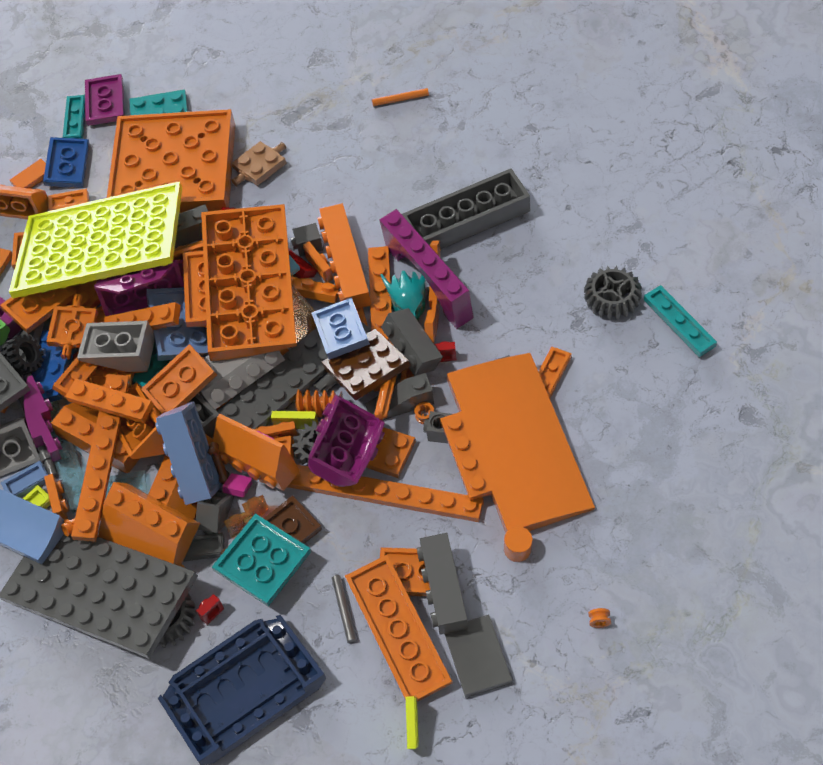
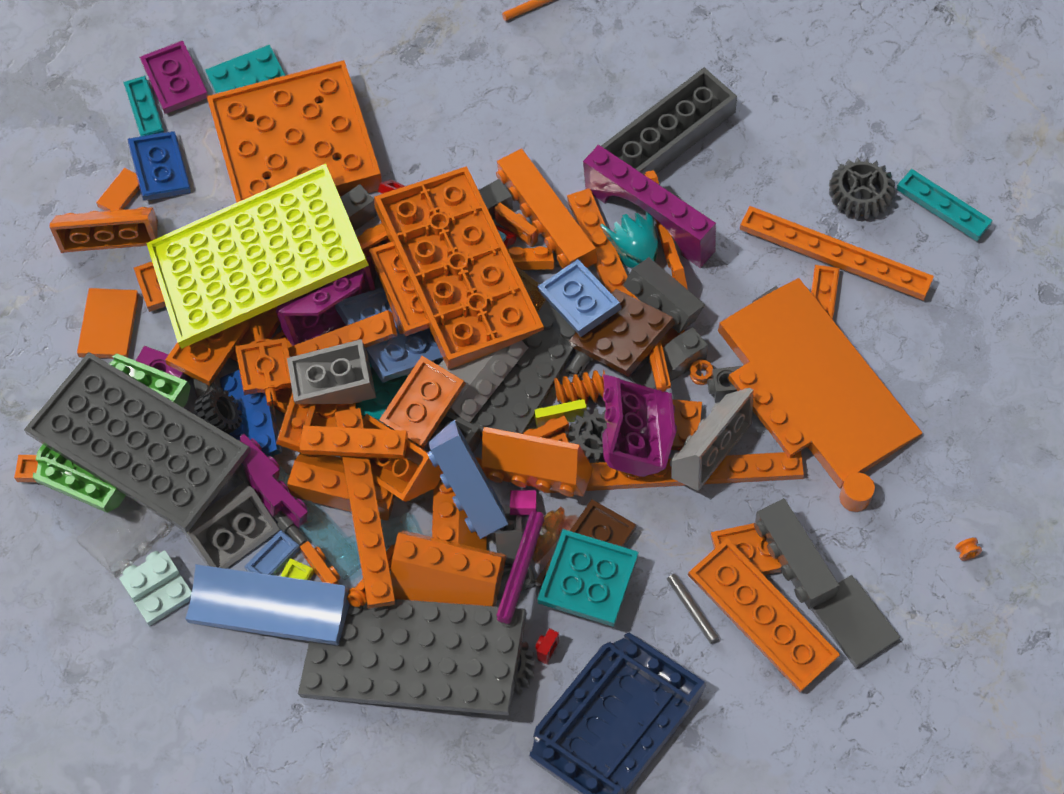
camera: 20 degrees left, 5 degrees up
(67, 199) = (183, 213): orange plate -> none
(204, 536) = (520, 567): none -> magenta axle
(213, 450) = (495, 482): reddish brown piece -> none
(258, 163) = (397, 119): medium nougat plate -> none
(408, 470) = (713, 439): none -> light grey slope
(412, 722) = (814, 707): neon yellow tile -> none
(447, 350) = (705, 294): red plate -> none
(574, 341) = (836, 253): none -> orange plate

